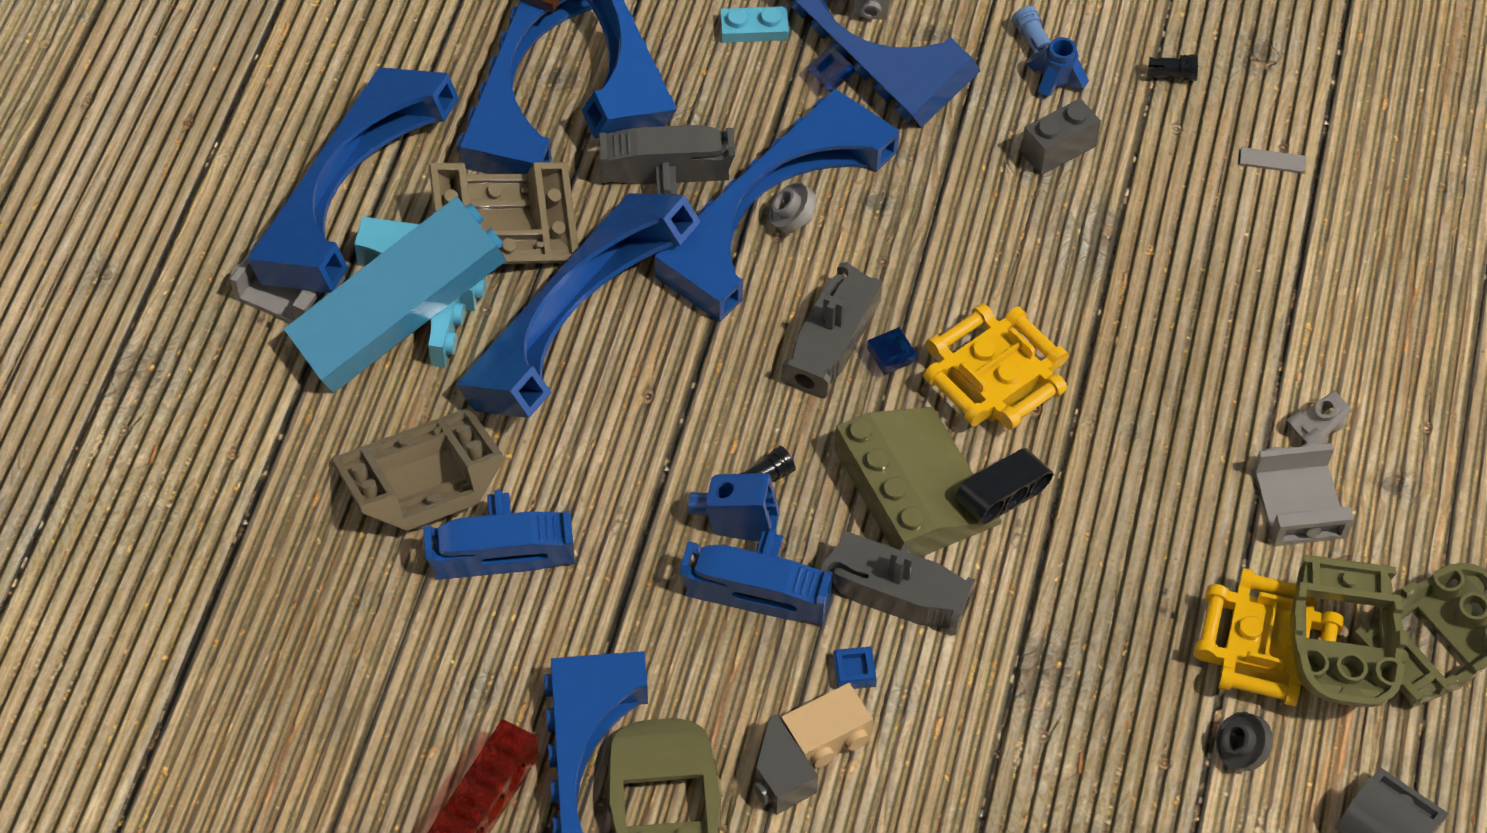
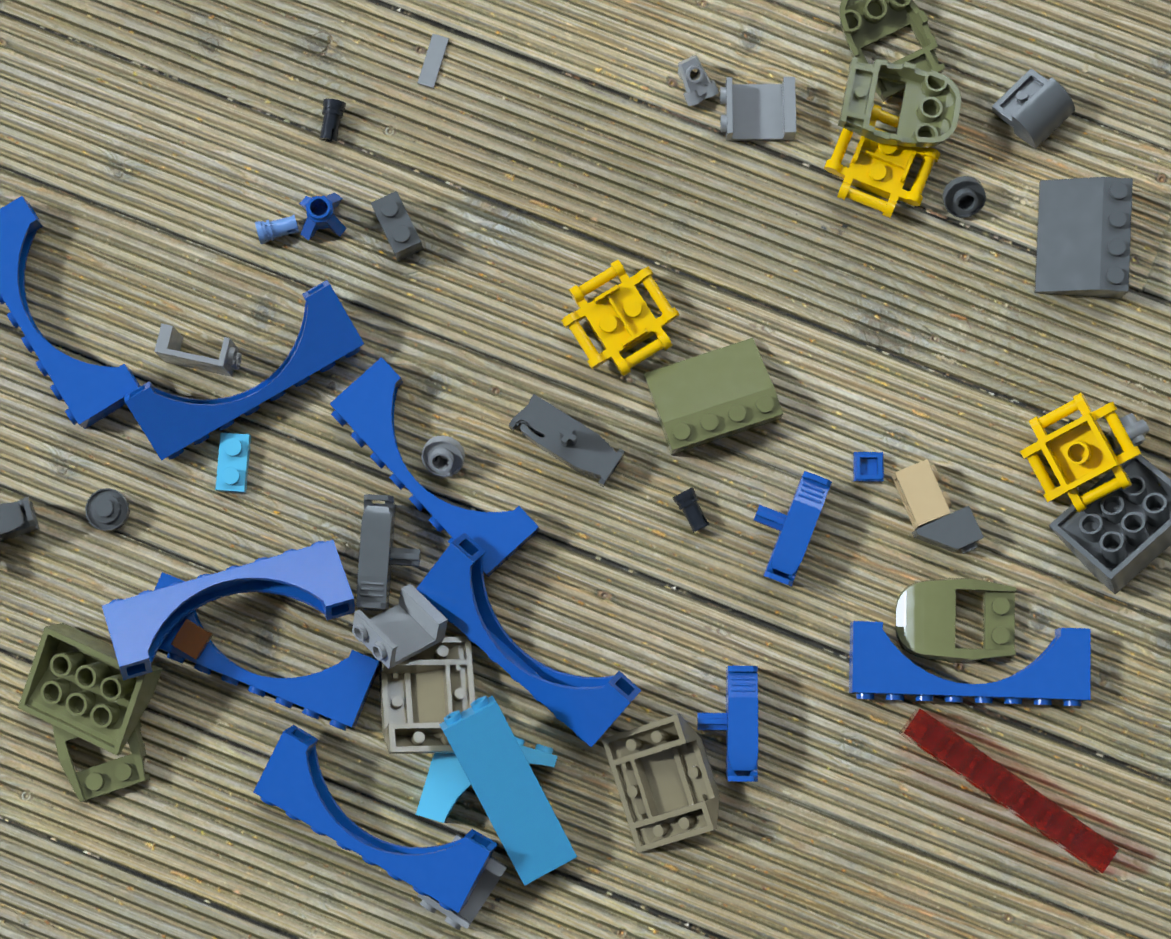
camera: 80 degrees left, 25 degrees up
(573, 173) = (401, 629): none -> light grey panel
(738, 505) = (732, 524): blue torso -> none
(831, 69) = (298, 404): clear blue plate -> none
(891, 351) = (591, 396): clear blue plate -> none
(898, 582) = (805, 423): dark grey piece -> none
(1004, 486) = (733, 330): black beam -> none

